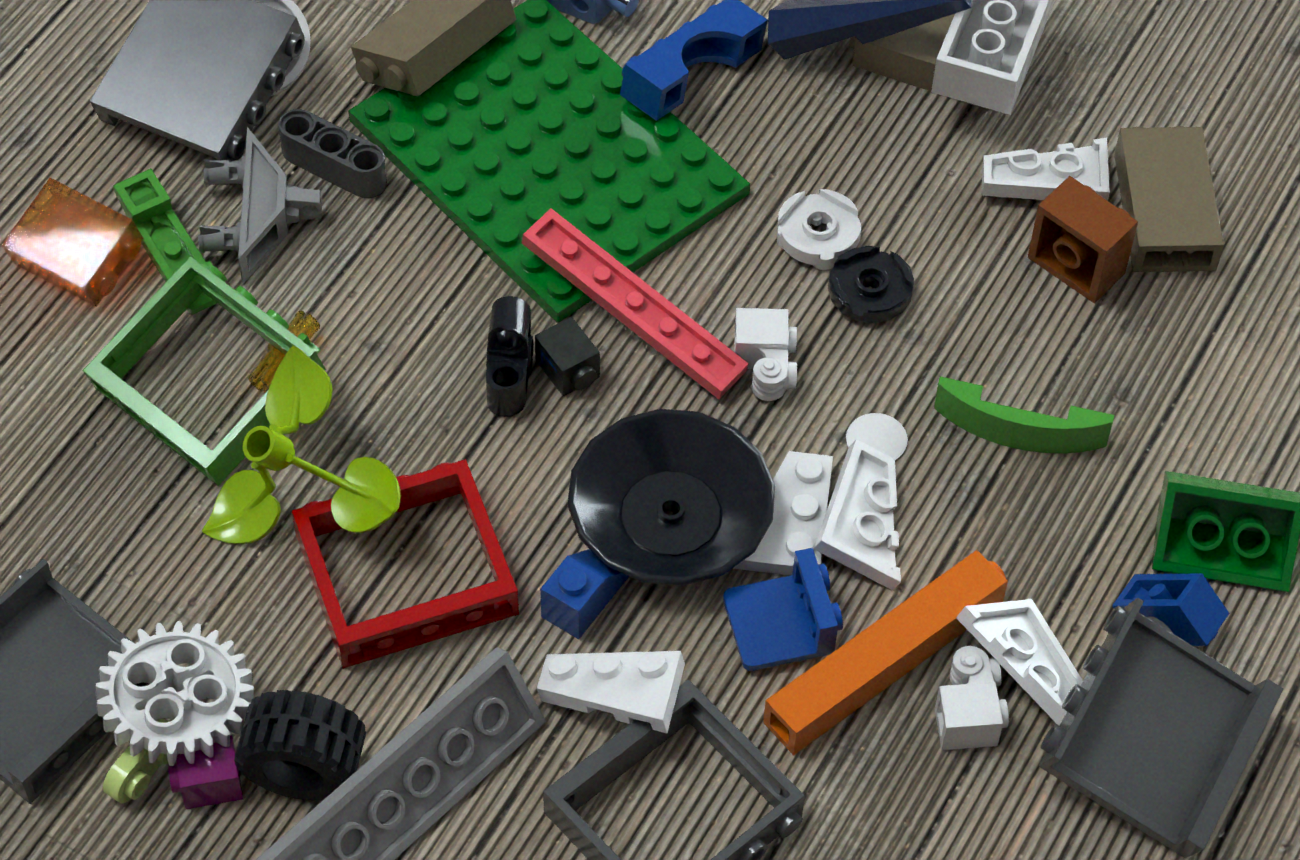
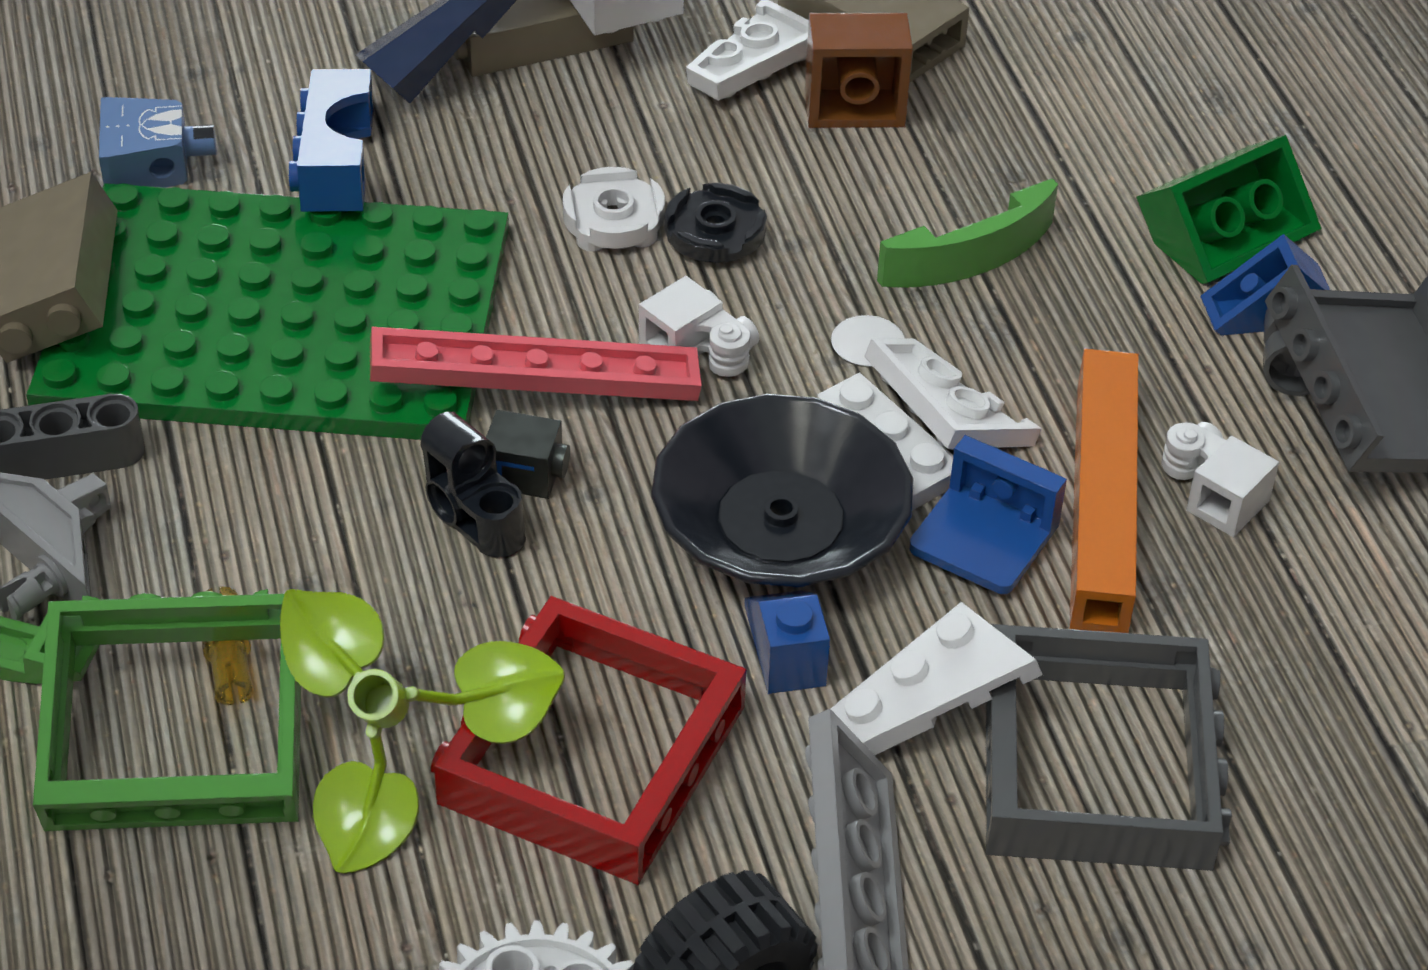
camera: 45 degrees left, 10 degrees down
(1026, 649) = (1227, 404): white wing -> none

